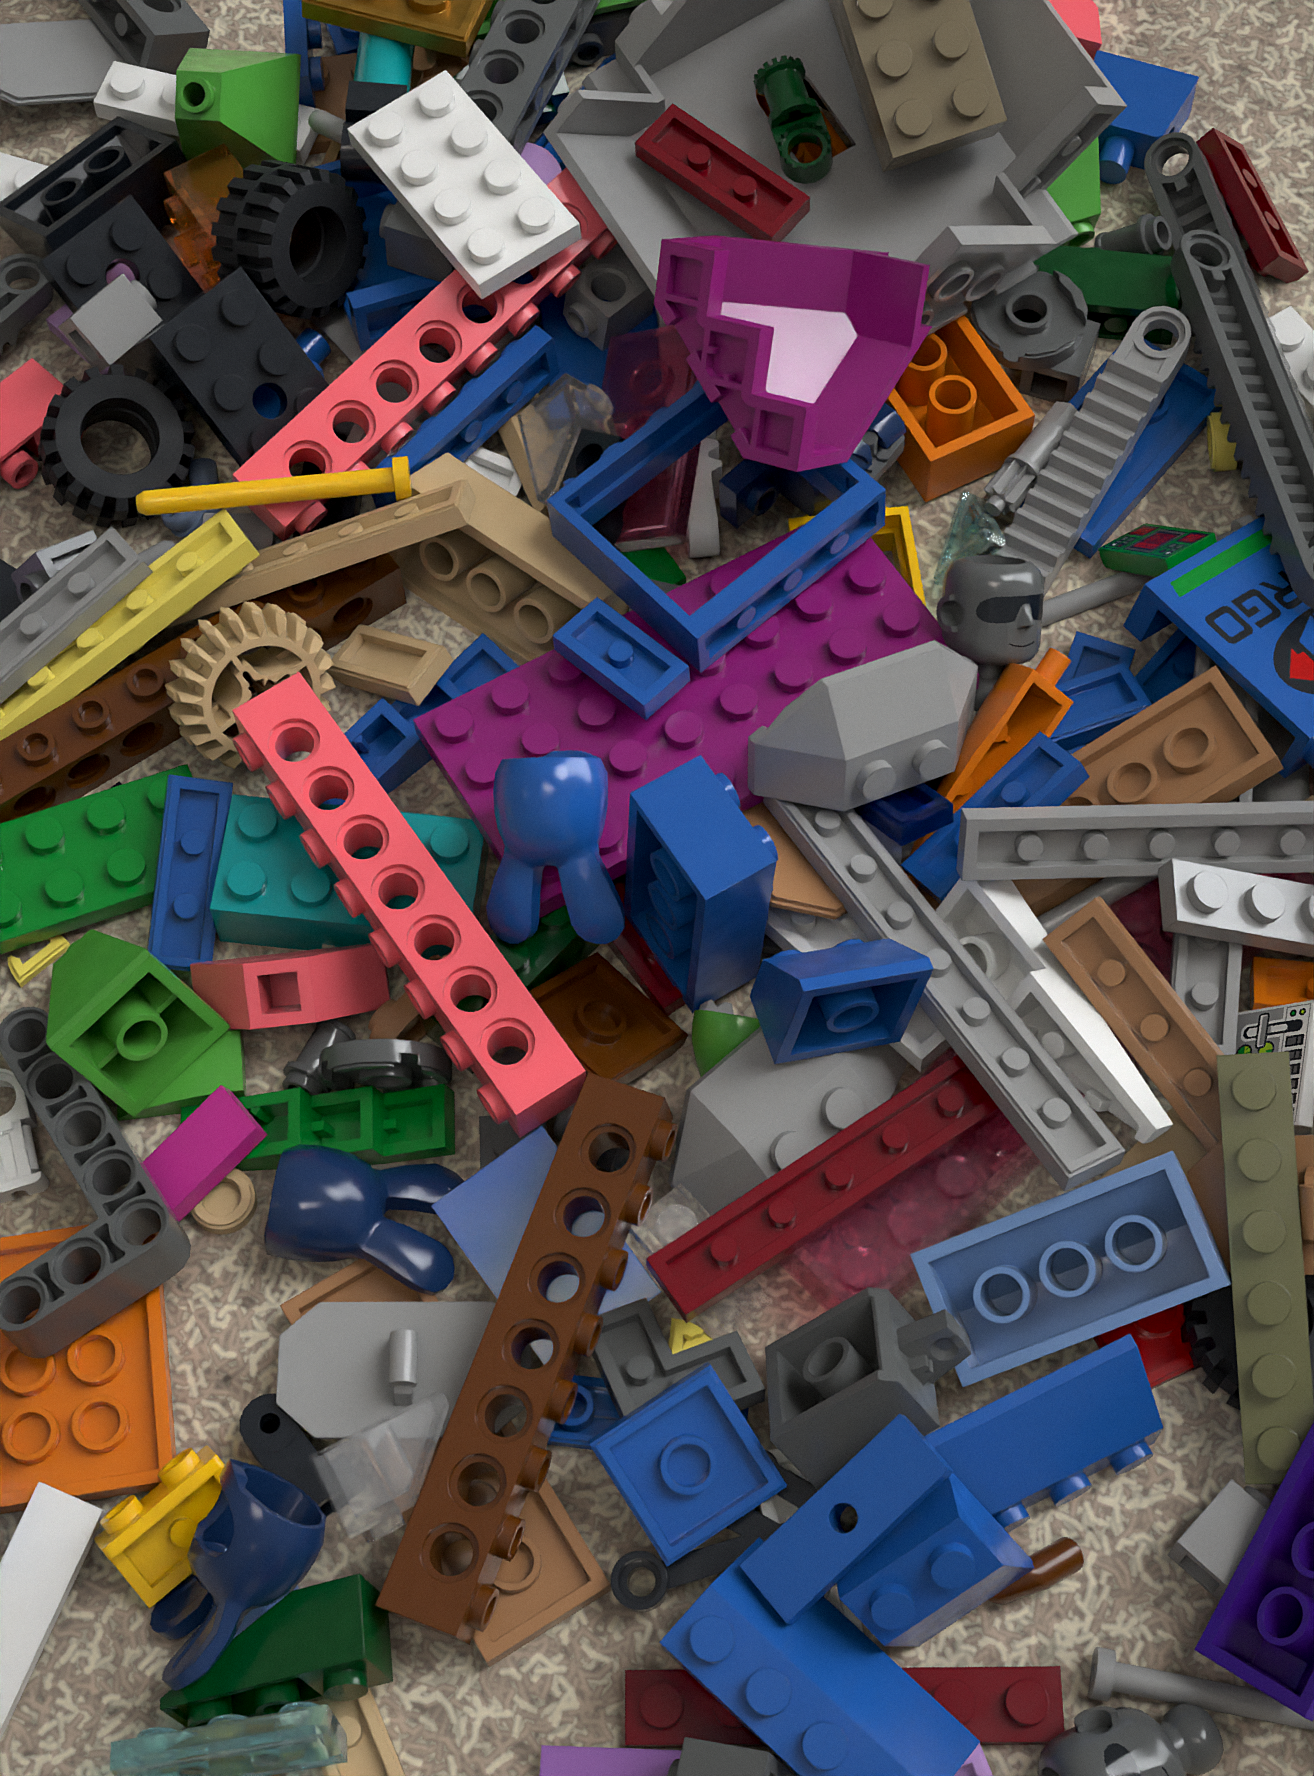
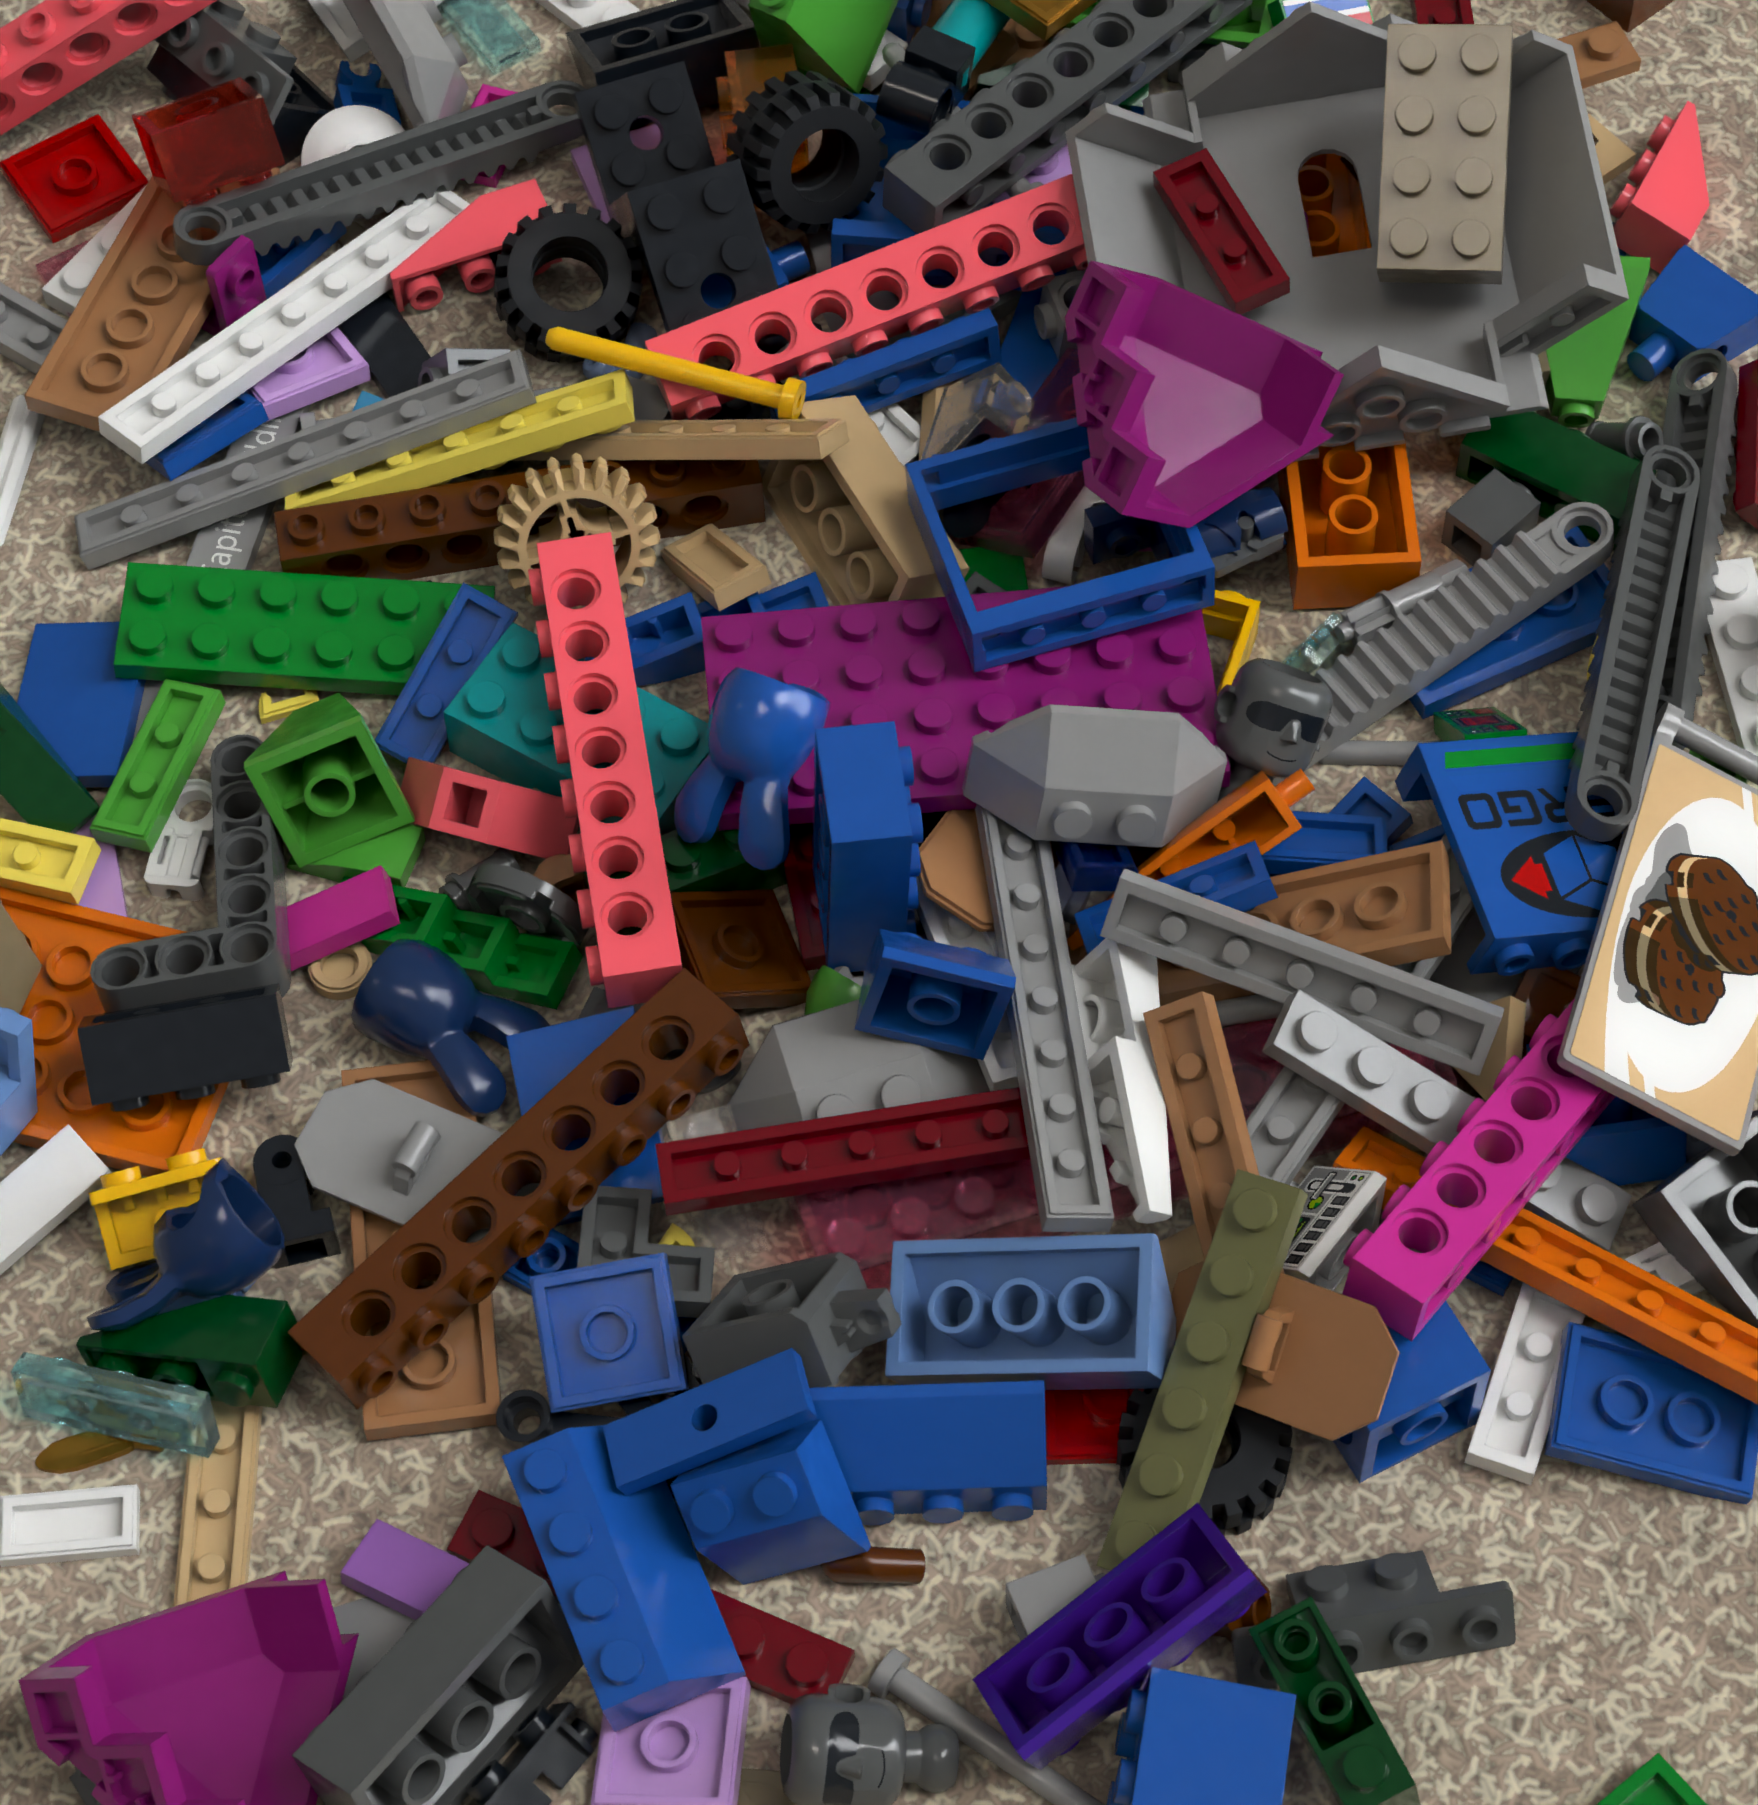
camera: 25 degrees right, 5 degrees down
(112, 321) = (612, 168): light grey brick -> none
(122, 1352) = (186, 1047): none -> black brick
(381, 1468) = (346, 1224): clear slope -> none
(464, 184) = (973, 154): white plate -> none
(621, 658) = (905, 630): blue plate -> none
(794, 118) = (1316, 201): dark green connector -> none
(1038, 343) = (1465, 498): dark grey tile -> none

